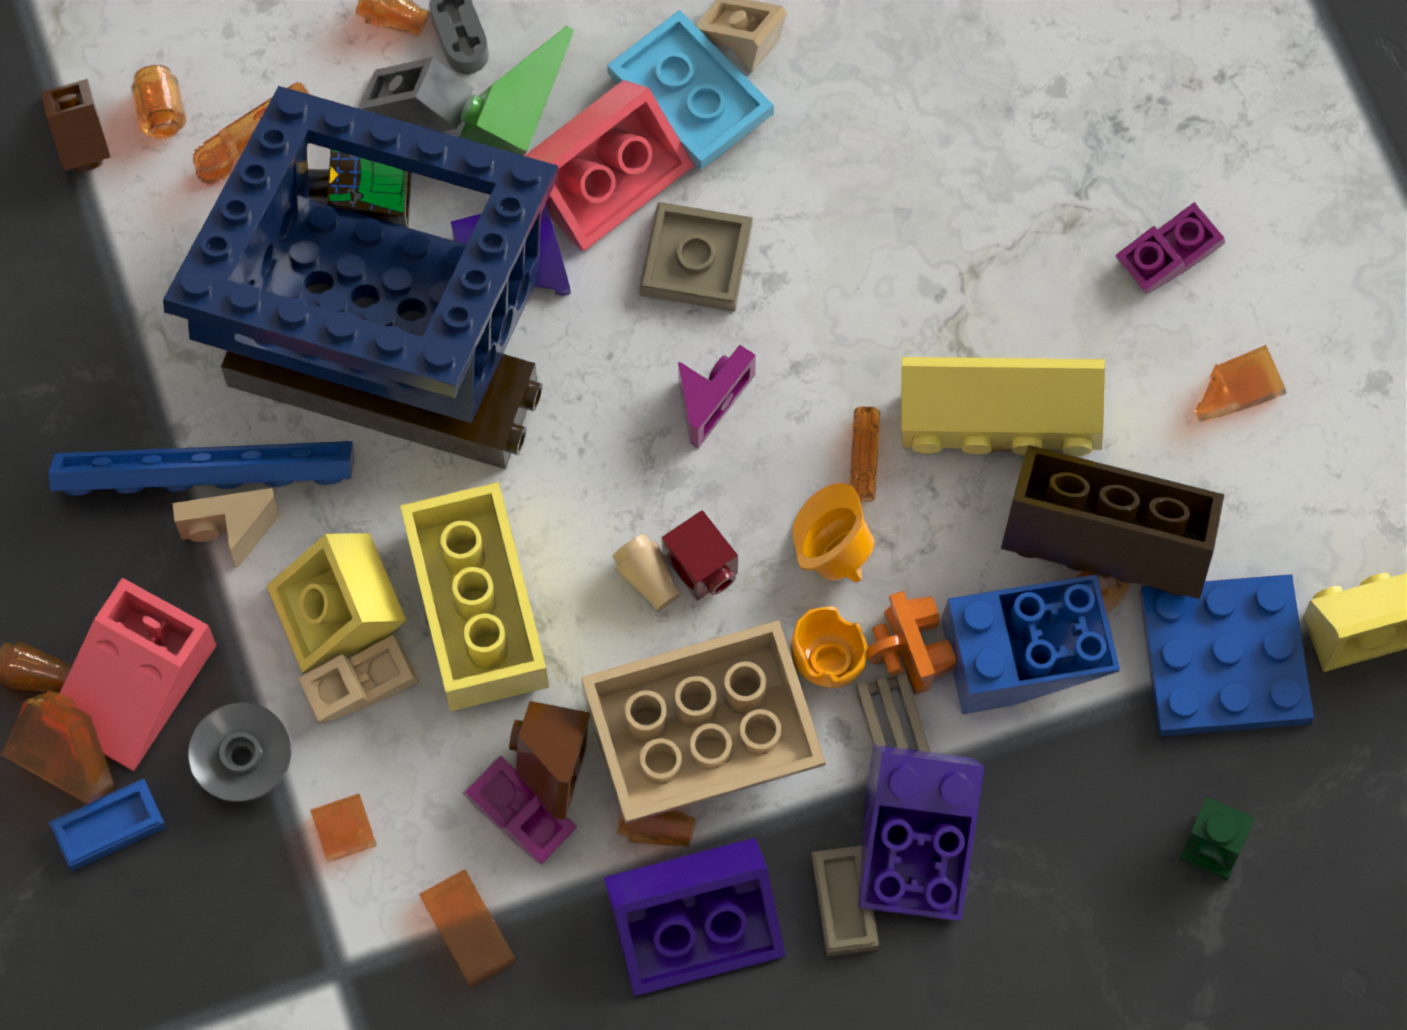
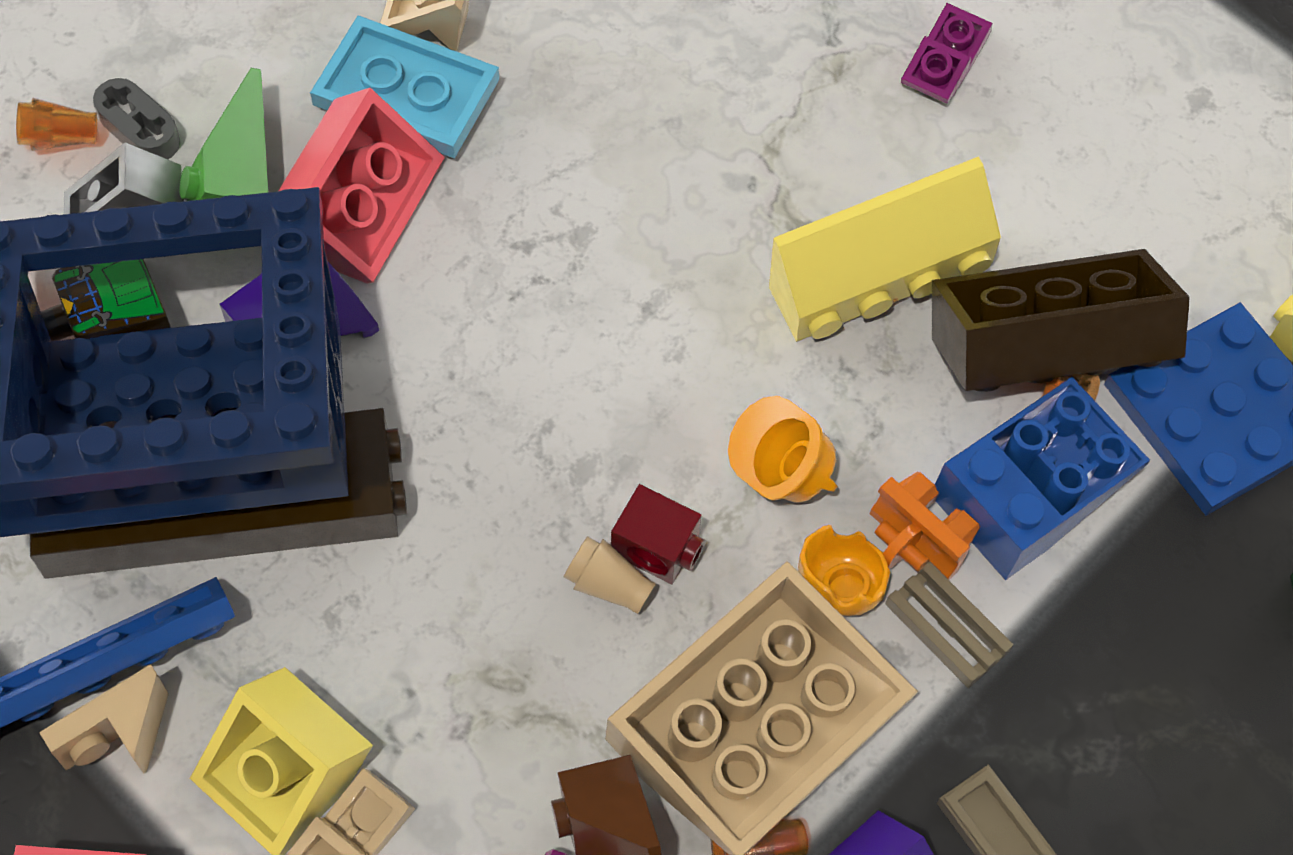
camera: 30 degrees left, 5 degrees down
(475, 596) = (438, 685): light yellow brick -> none
(696, 256) = (492, 242): dark tan tile -> none
(708, 401) = (577, 372): magenta slope -> none
(865, 452) = (764, 357): clear orange axle -> none
(918, 832) = (1042, 721): dark purple slope -> none
(1241, 385) = (1085, 148): clear orange slope -> none

